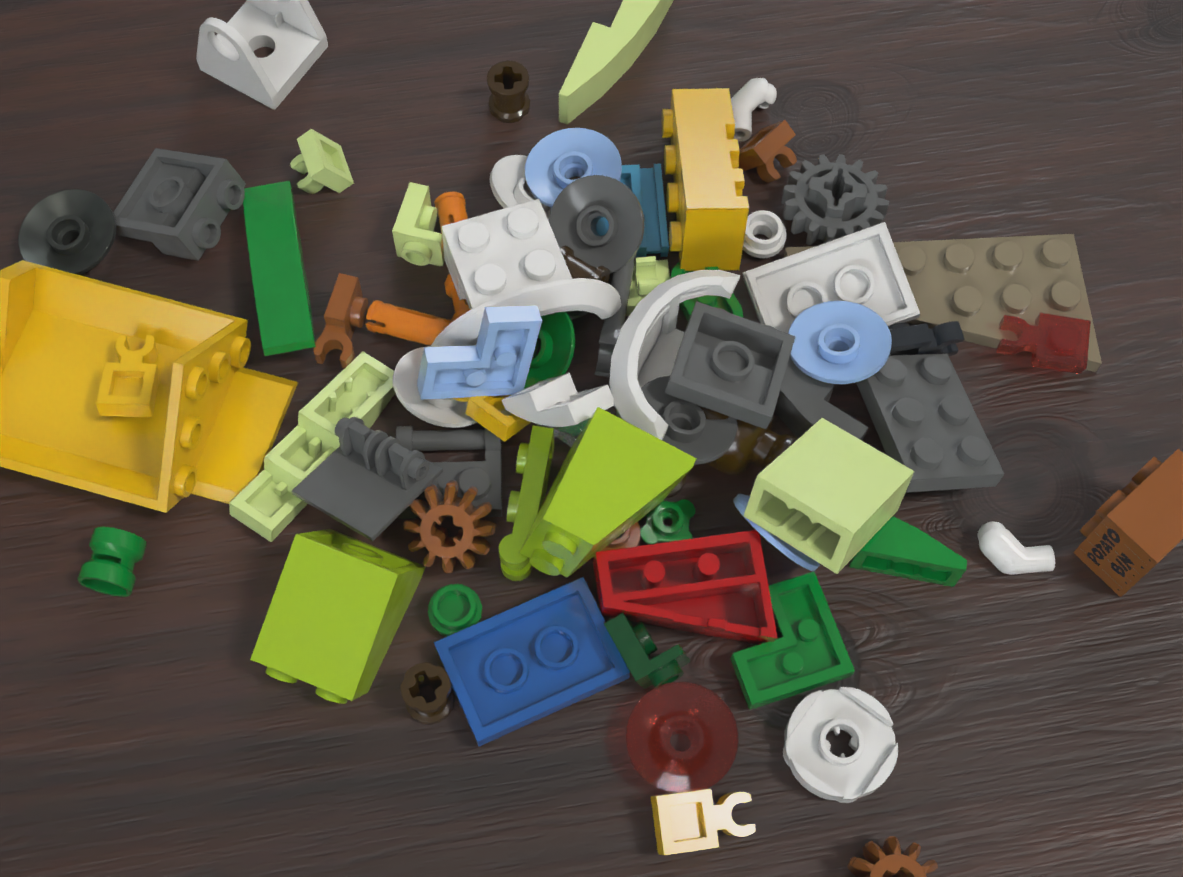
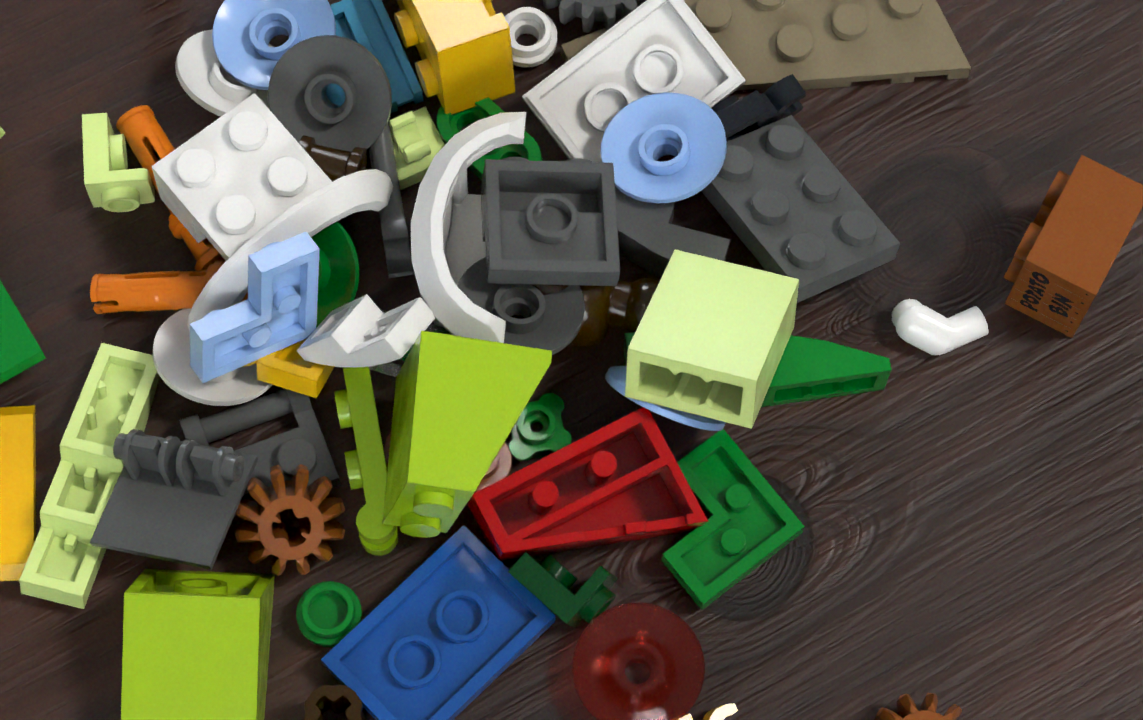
camera: 20 degrees left, 5 degrees up
(344, 313) = (63, 302): dark orange plate -> none
(872, 739) = (848, 596): white plate -> none
(1054, 341) = (909, 59): clear red plate -> none

